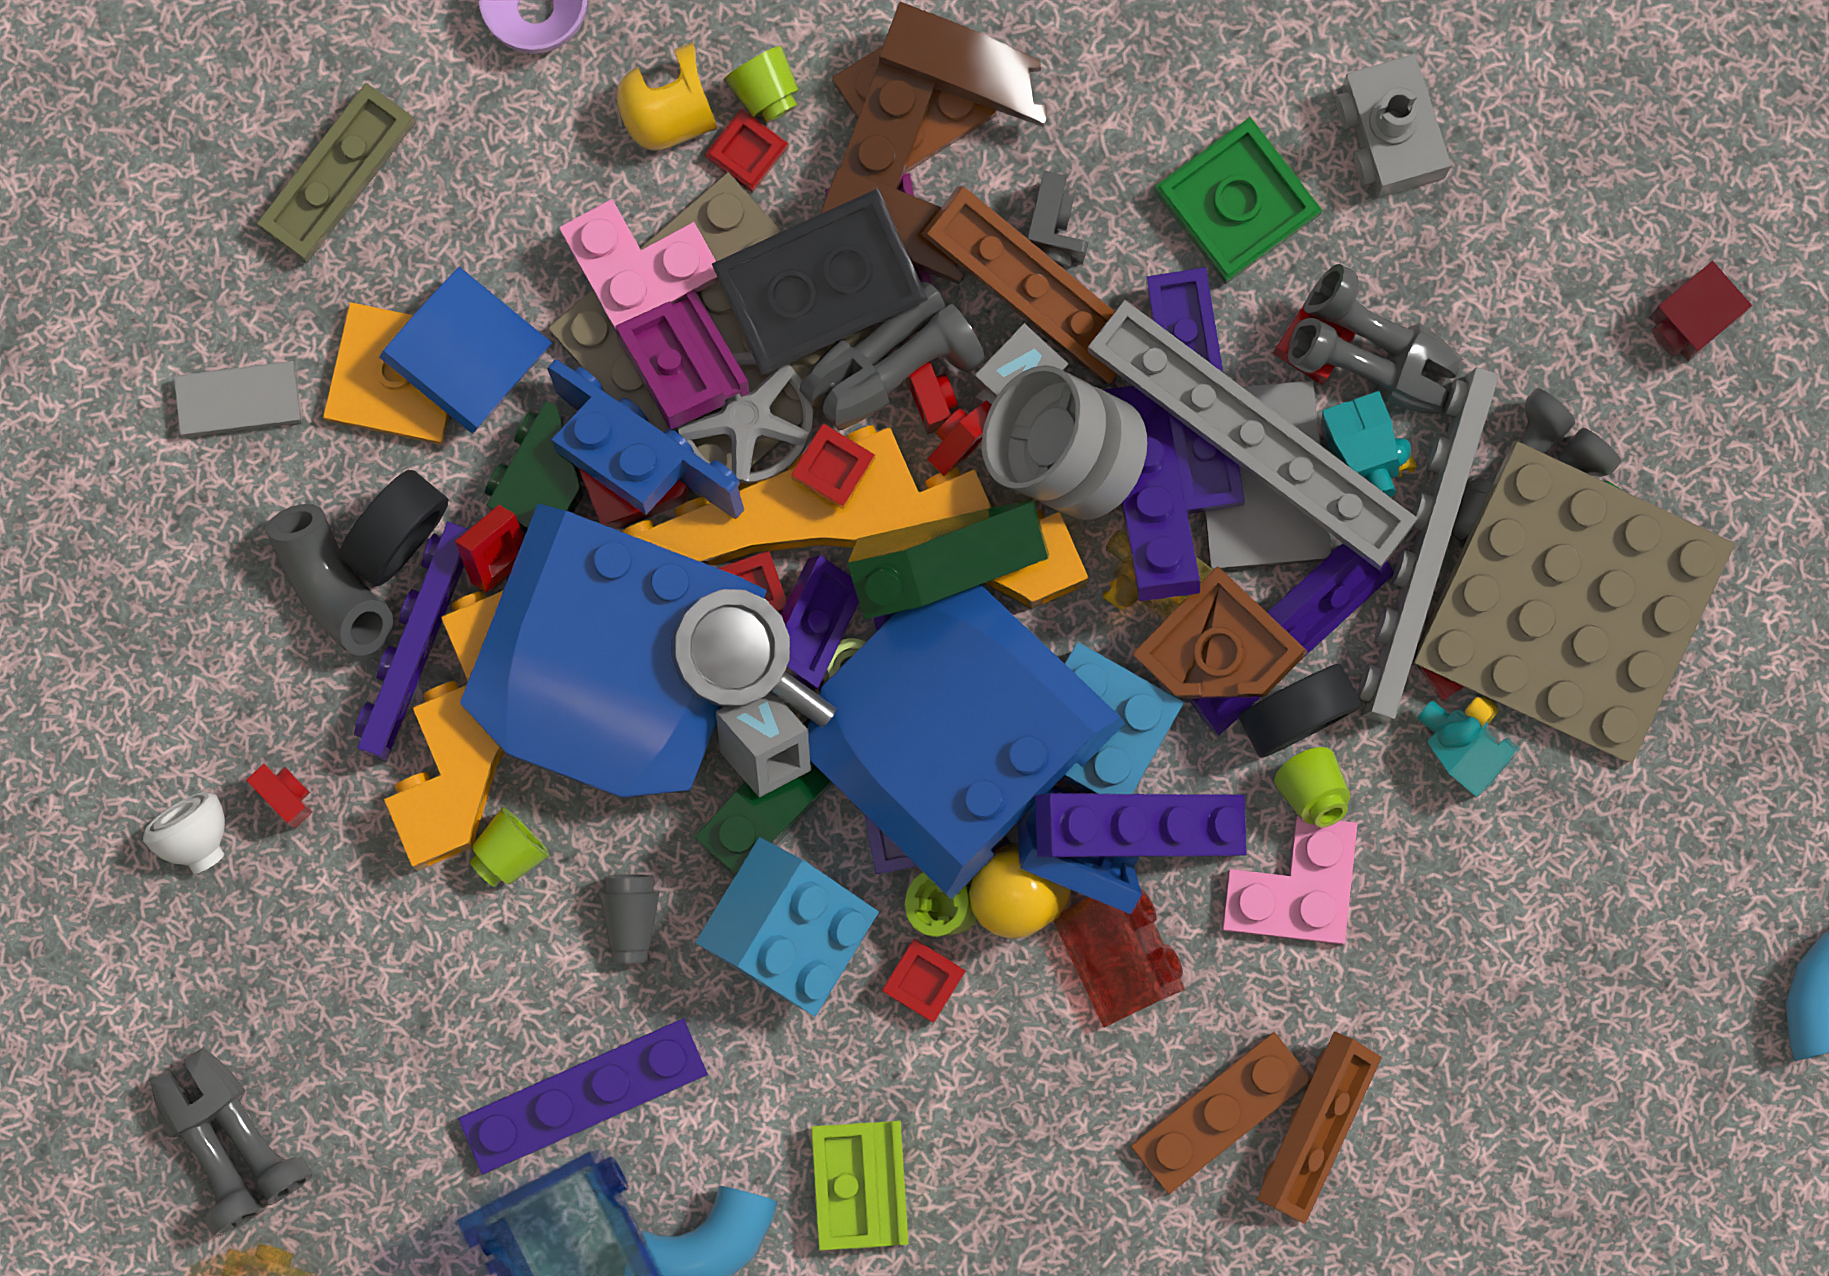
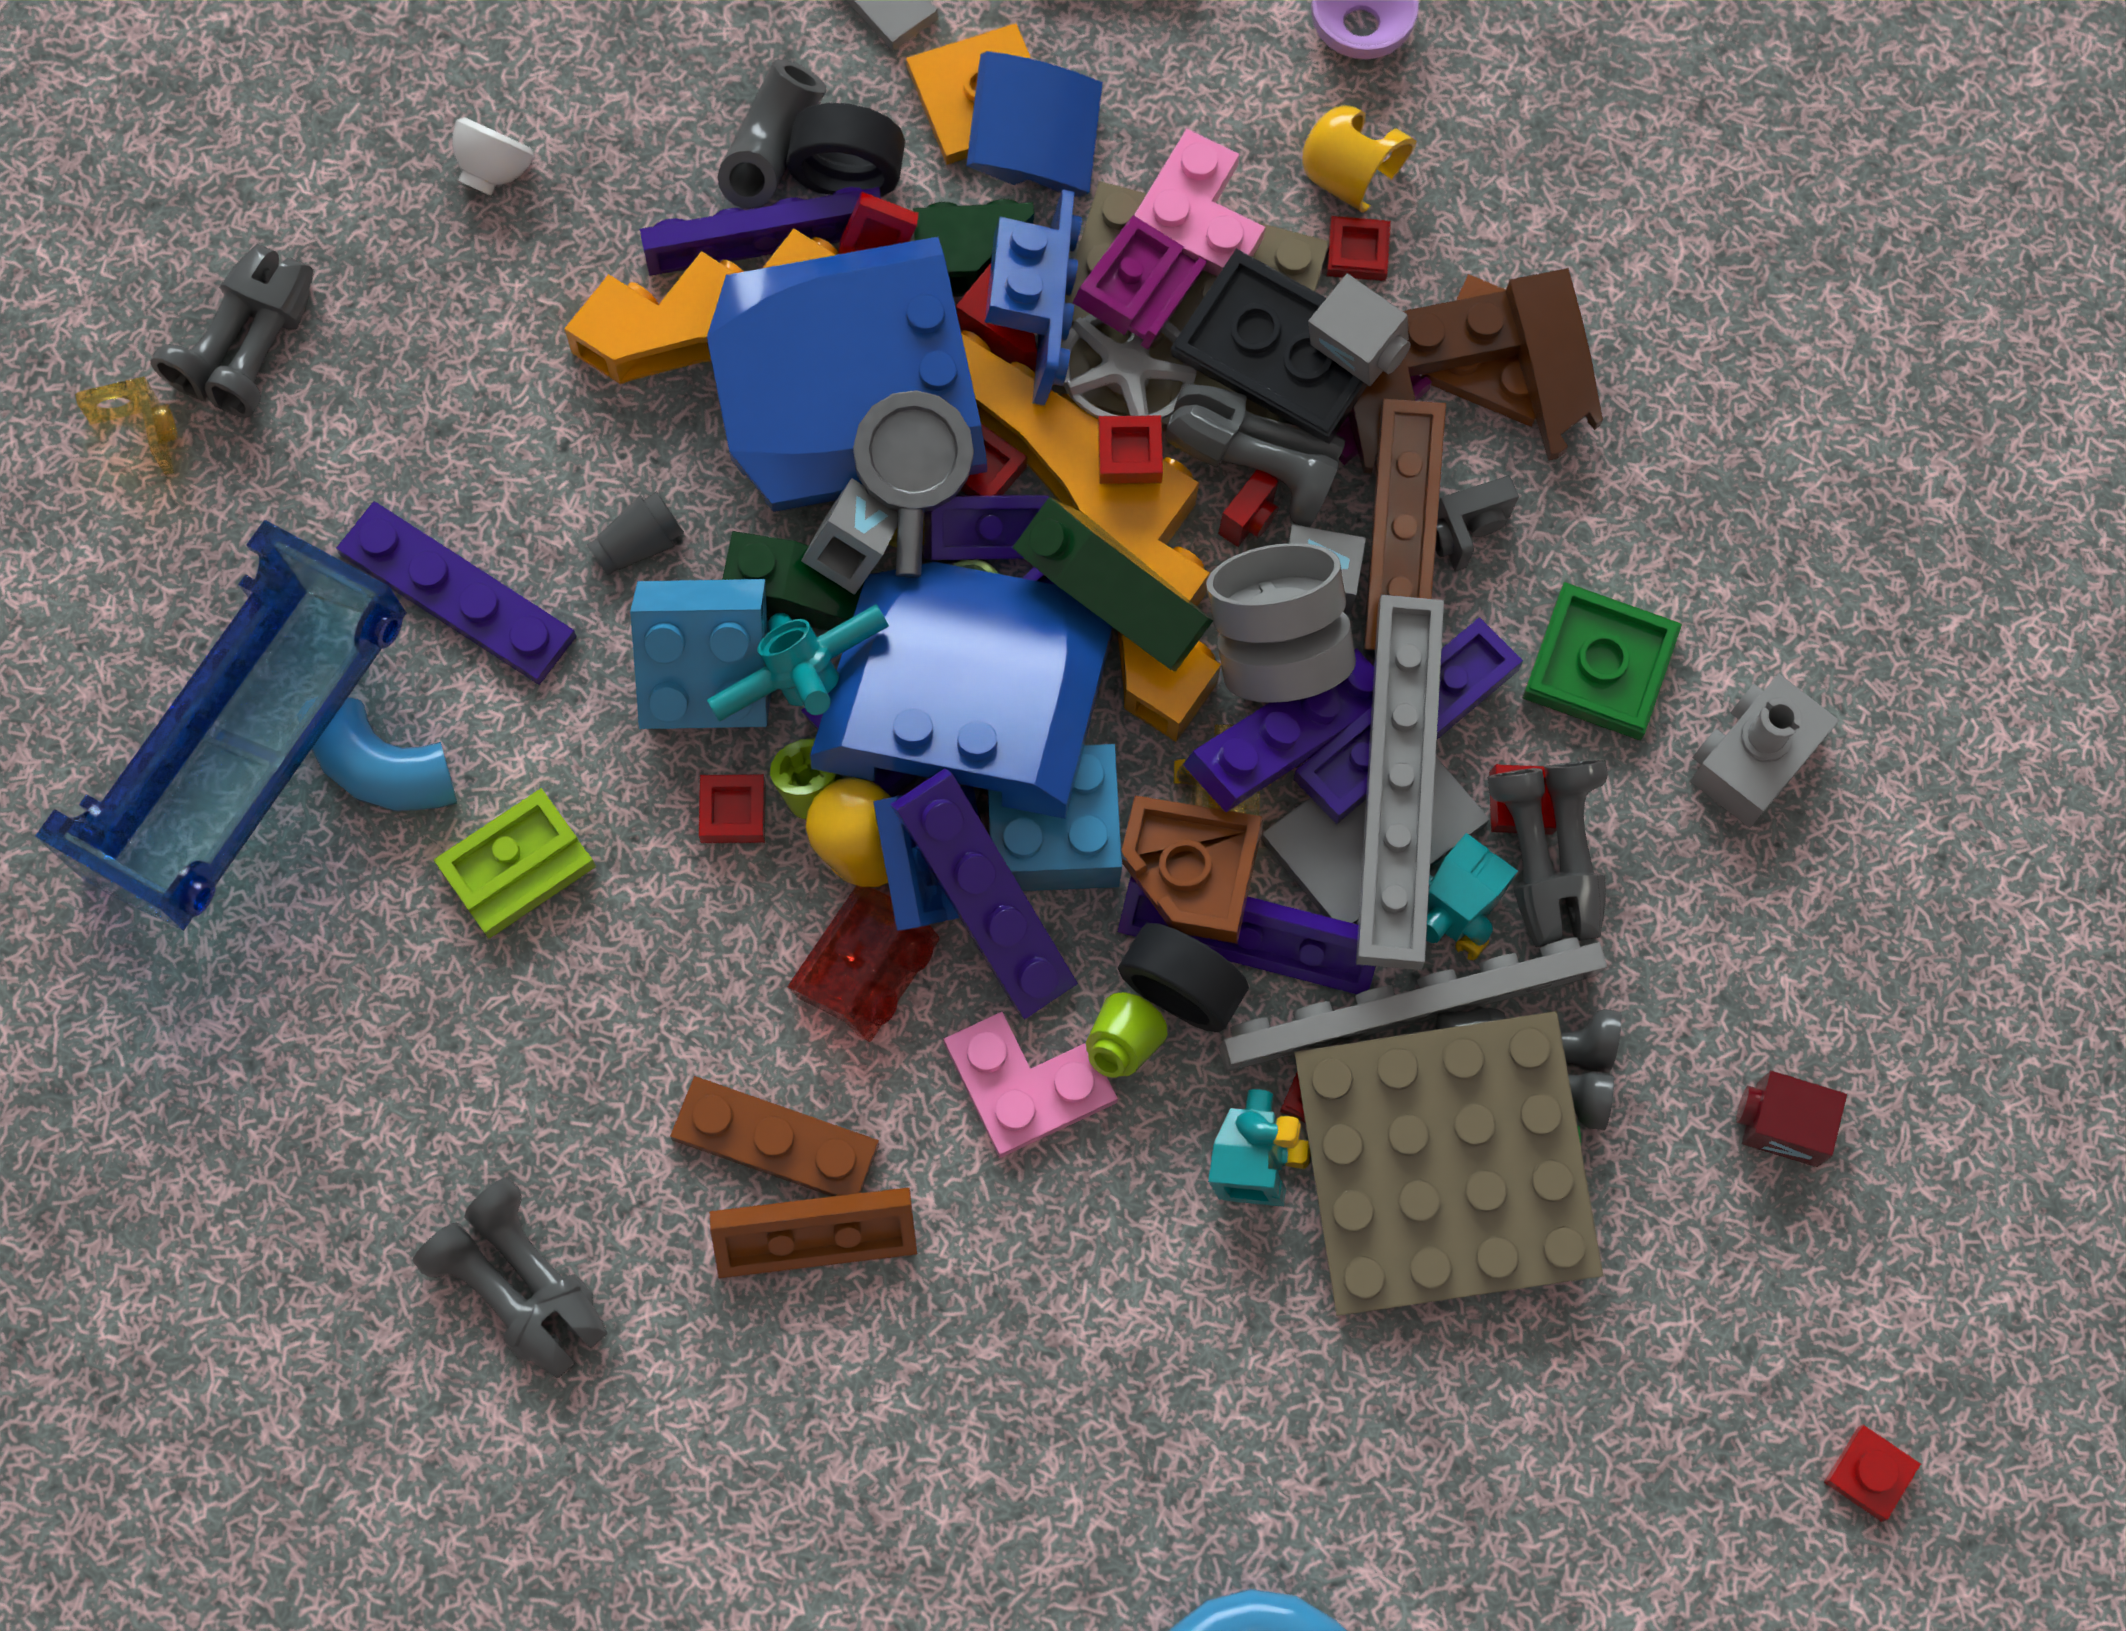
camera: 55 degrees right, 10 degrees down
(282, 793) = (565, 203): red plate -> none
(506, 850) = (632, 403): lime hat -> none
(765, 84) = (1424, 223): lime hat -> none
(860, 855) = (798, 663): none -> teal bar
(868, 216) = (1360, 330): none -> light grey brick
(960, 438) = (1223, 542): red plate -> none

